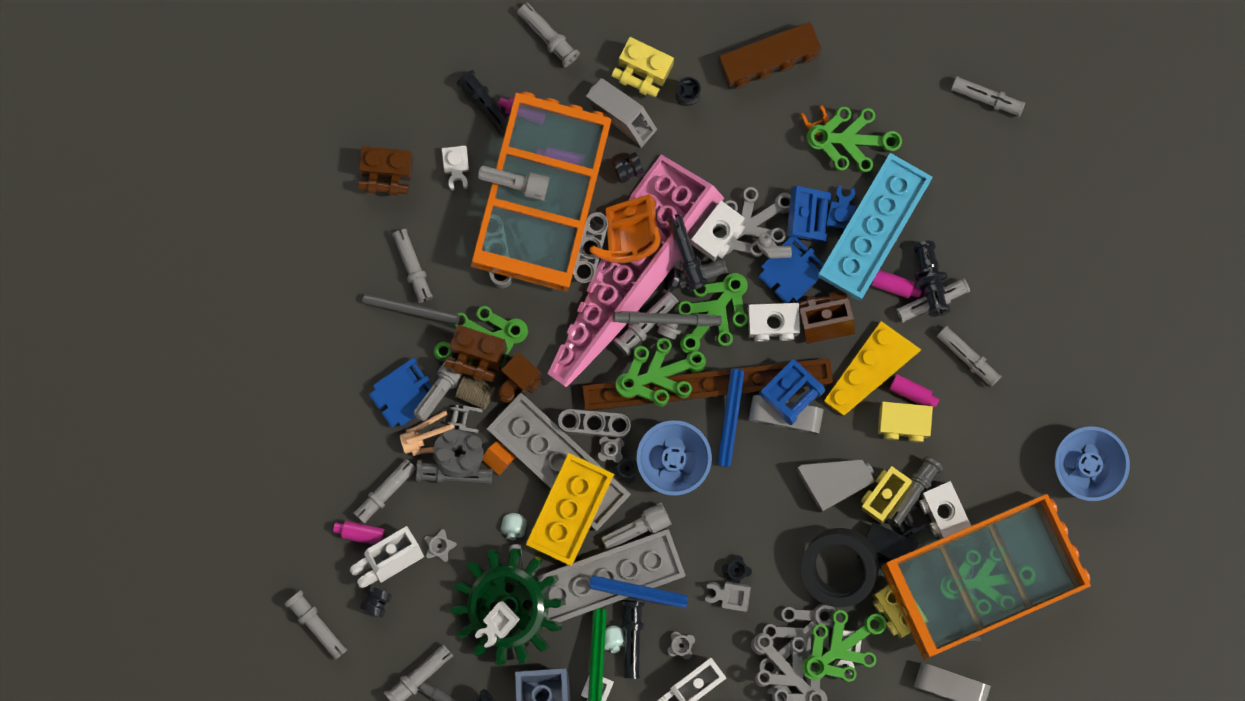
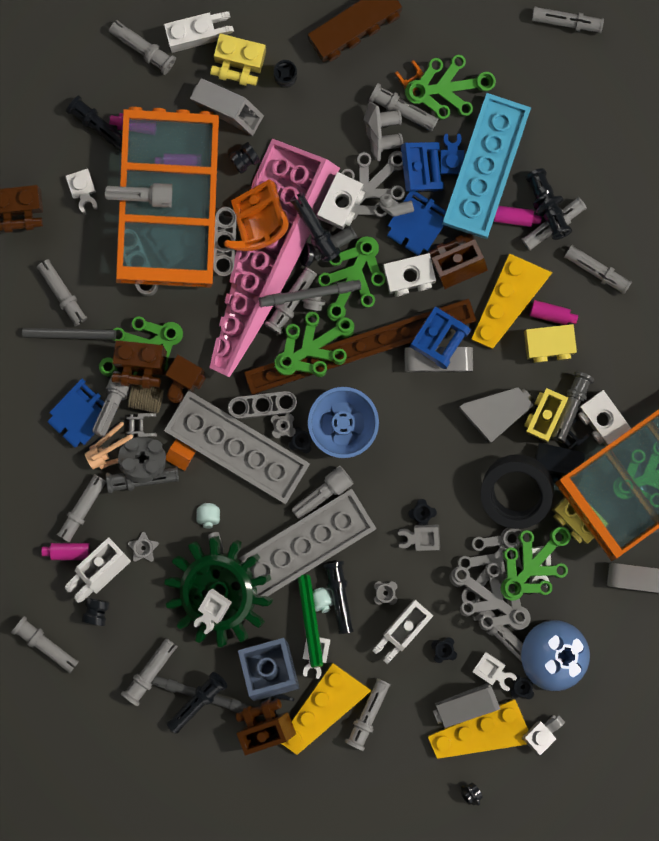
camera: 15 degrees left, 5 degrees up
(570, 509) = (257, 489): yellow plate -> none
(606, 29) = (196, 31): none -> white hinge
(638, 591) = (336, 552): blue axle -> none
(730, 417) = (388, 372): blue axle -> none
(769, 157) = (374, 121): none -> light grey connector
(793, 144) = (393, 102): none -> light grey pin

